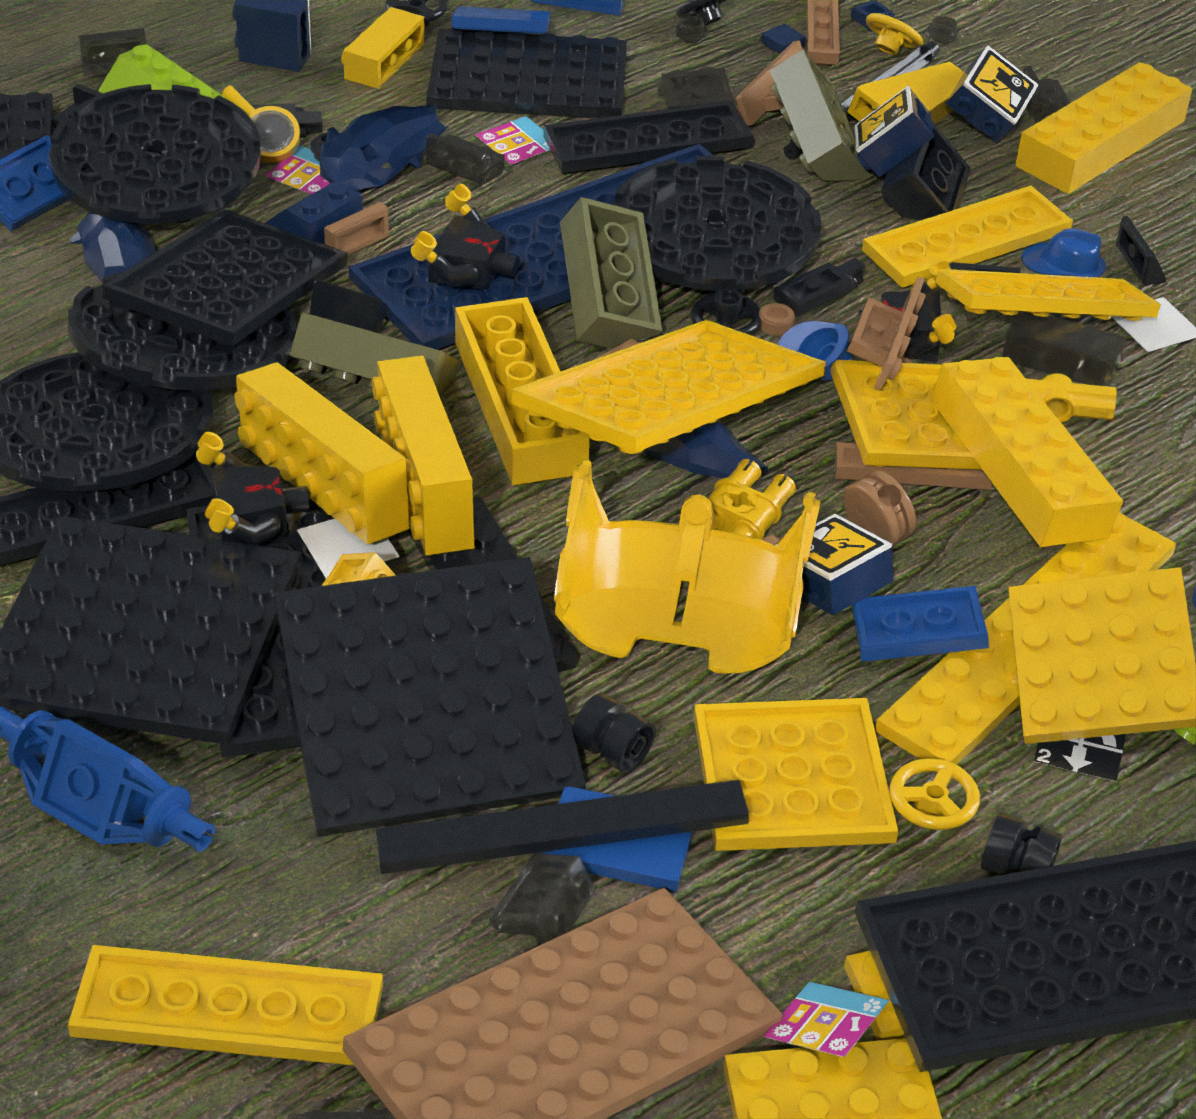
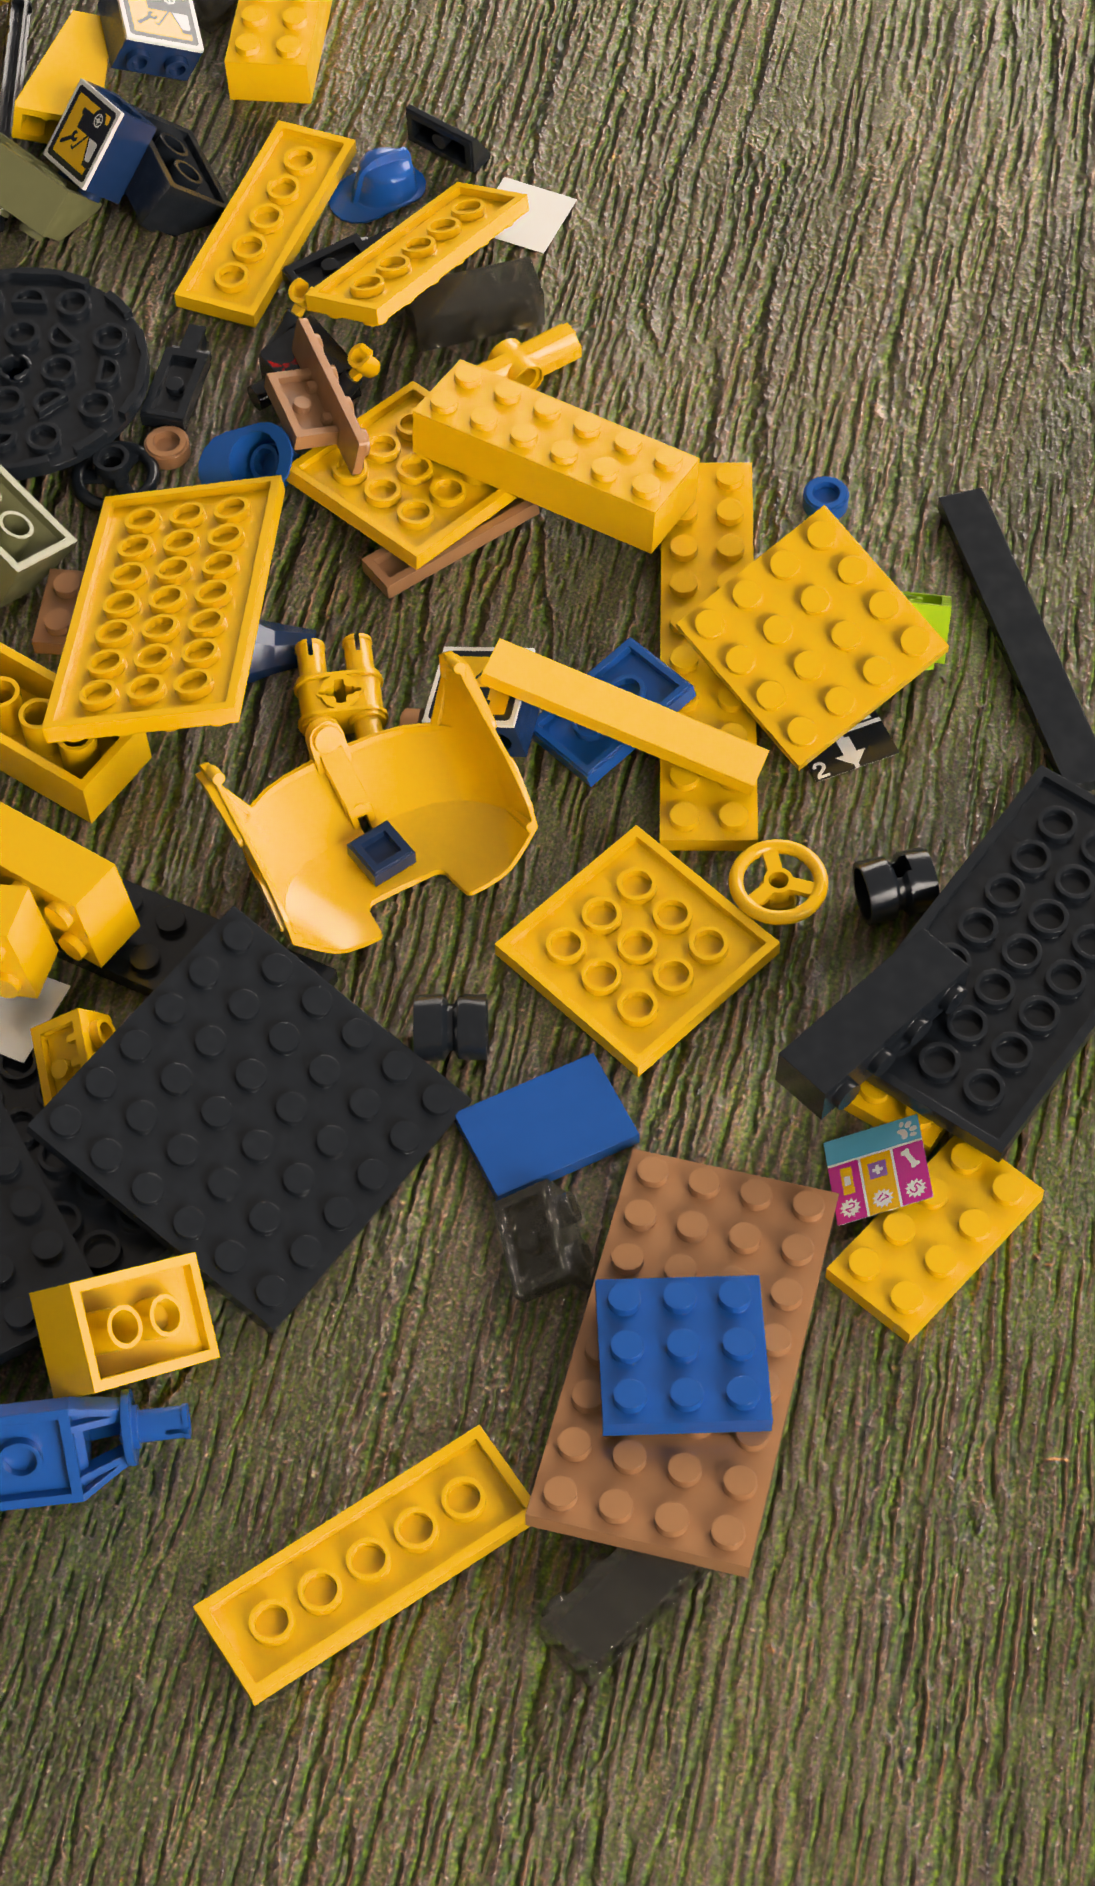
camera: 35 degrees left, 15 degrees up
(222, 751) = (124, 1326): none -> yellow slope
(552, 1020) = (682, 1355): none -> blue plate
(561, 826) = (492, 1161): black tile -> none
(676, 609) = (381, 853): none -> dark blue tile
(880, 507) = (475, 610): medium nougat head -> none
(901, 905) = (873, 1024): none -> black brick
(918, 624) = (624, 716): none -> yellow tile

